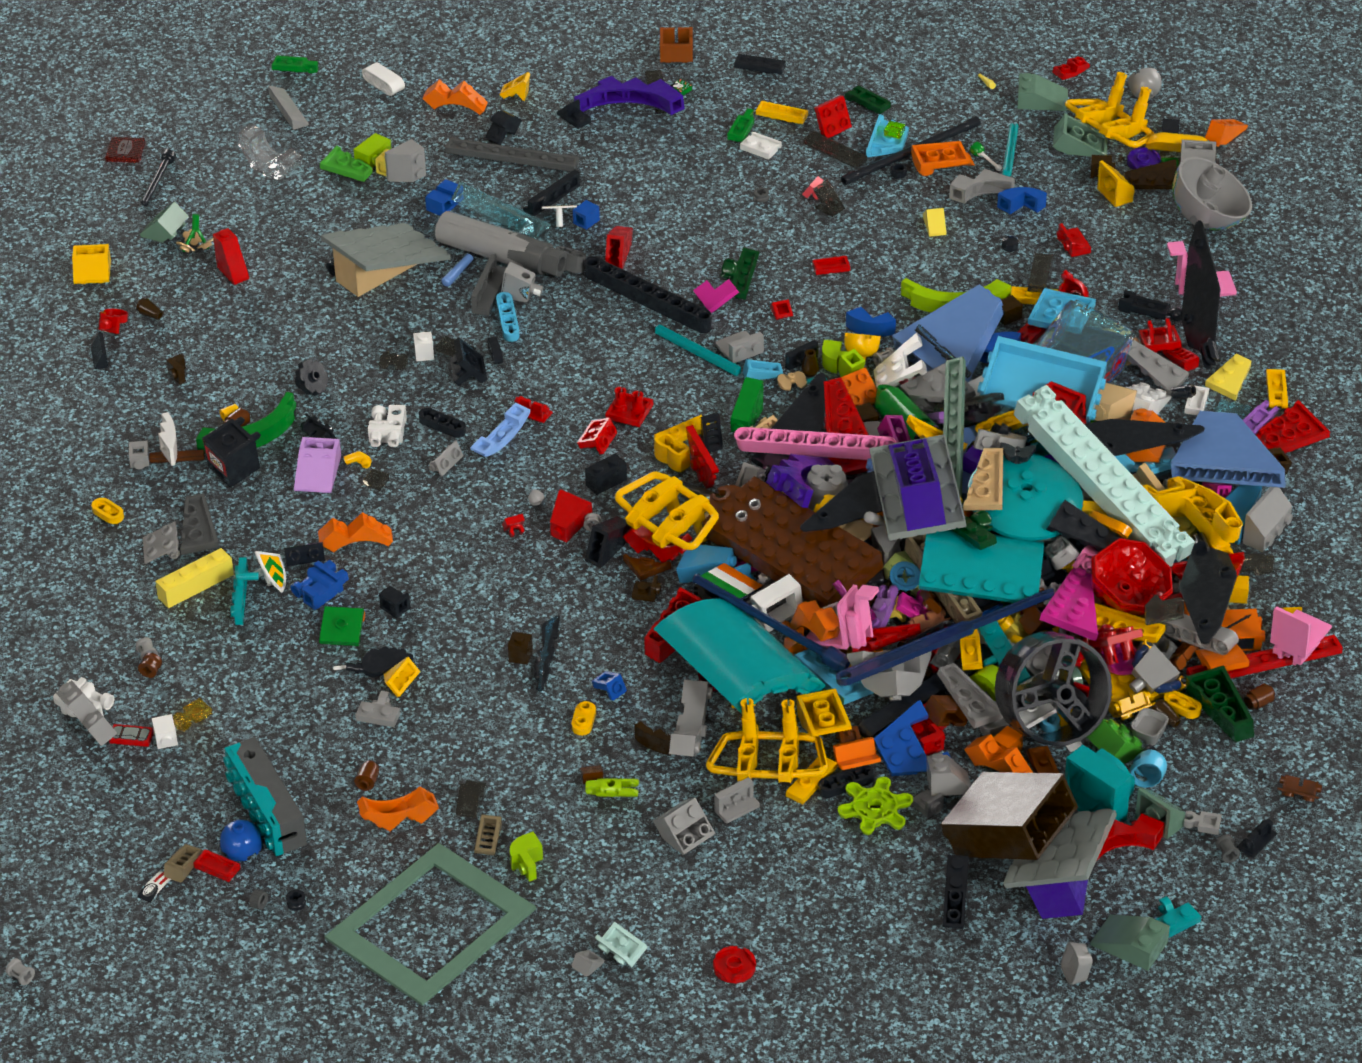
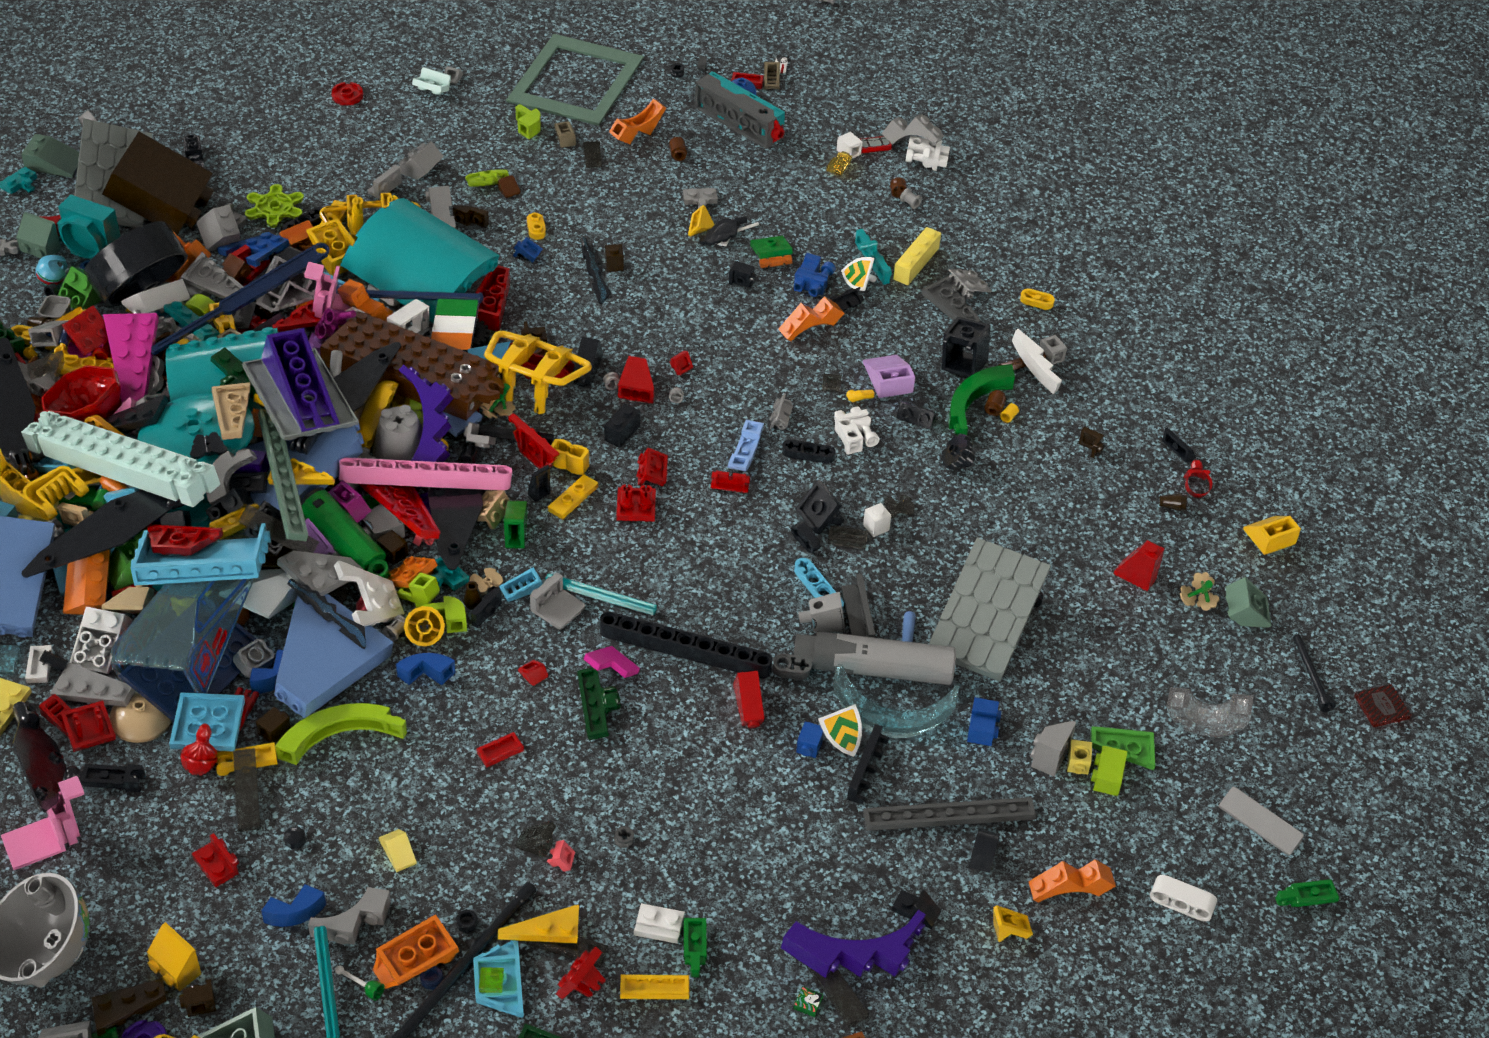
camera: 155 degrees right, 5 degrees up
(843, 149) = (556, 926): none -> yellow wing

